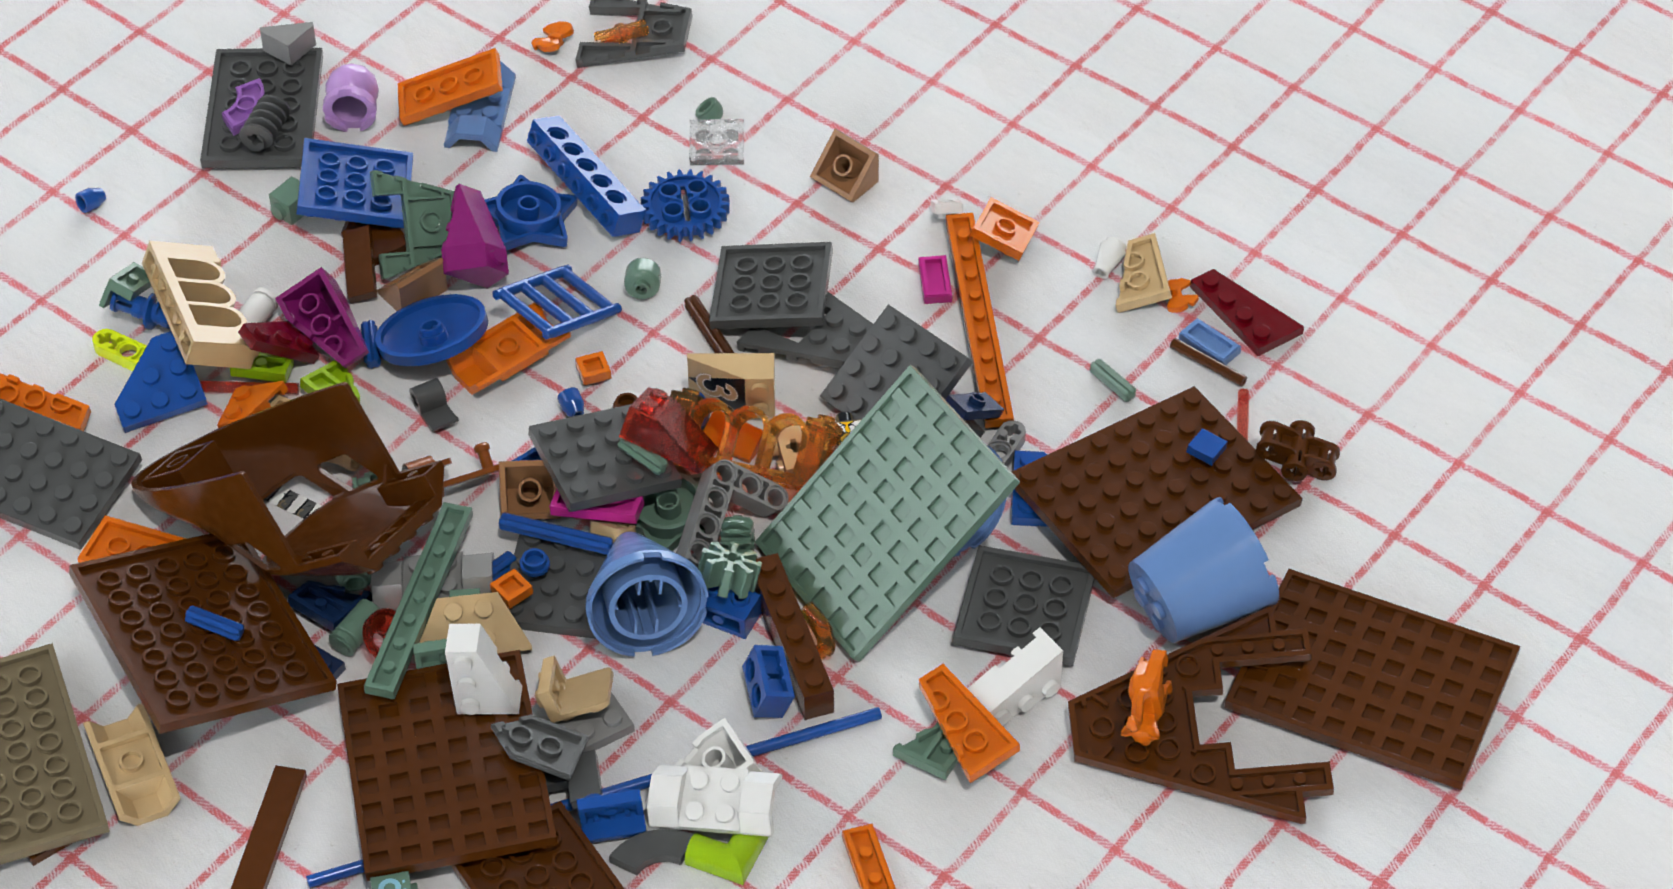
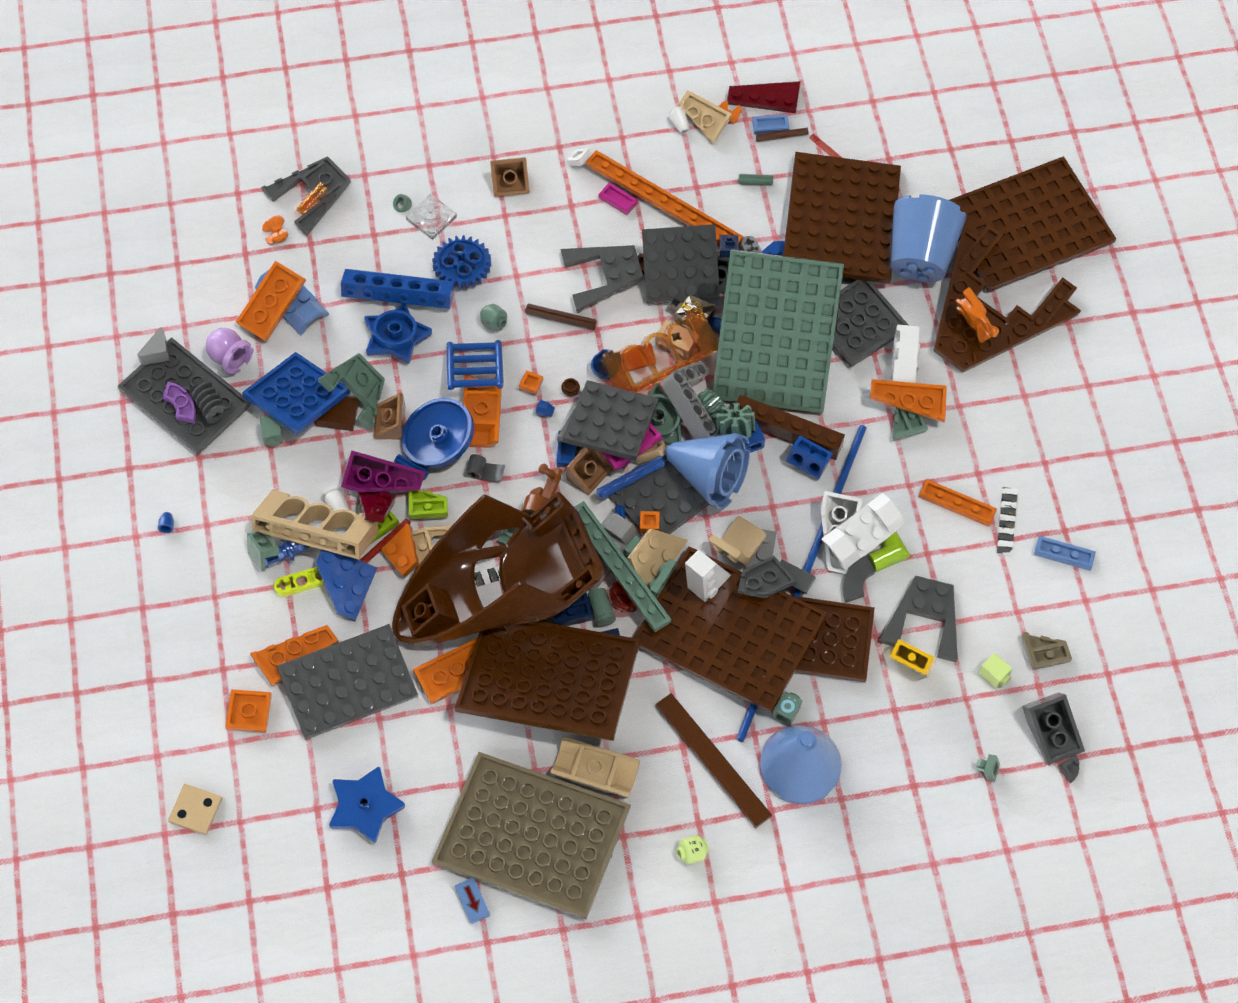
camera: 50 degrees left, 15 degrees up
(214, 623) = (558, 667): blue axle -> none
(359, 264) = (351, 432): reddish brown tile -> none
(473, 242) = (406, 374): magenta wedge -> none
(534, 562) = (641, 500): blue plate -> none
(612, 815) = (829, 582): blue bracket -> none
(647, 458) = (634, 402): sand green axle -> none
(667, 430) = (629, 382): clear red slope -> none
(735, 378) = (612, 330): tan slope -> none
(771, 285) = (558, 267): dark grey plate -> none
(821, 629) = (792, 409): clear orange arm -> none
(1004, 228) = (621, 145): orange plate -> none
(1206, 446) = (842, 176): blue tile -> none
(1298, 450) = (871, 144): reddish brown axle -> none

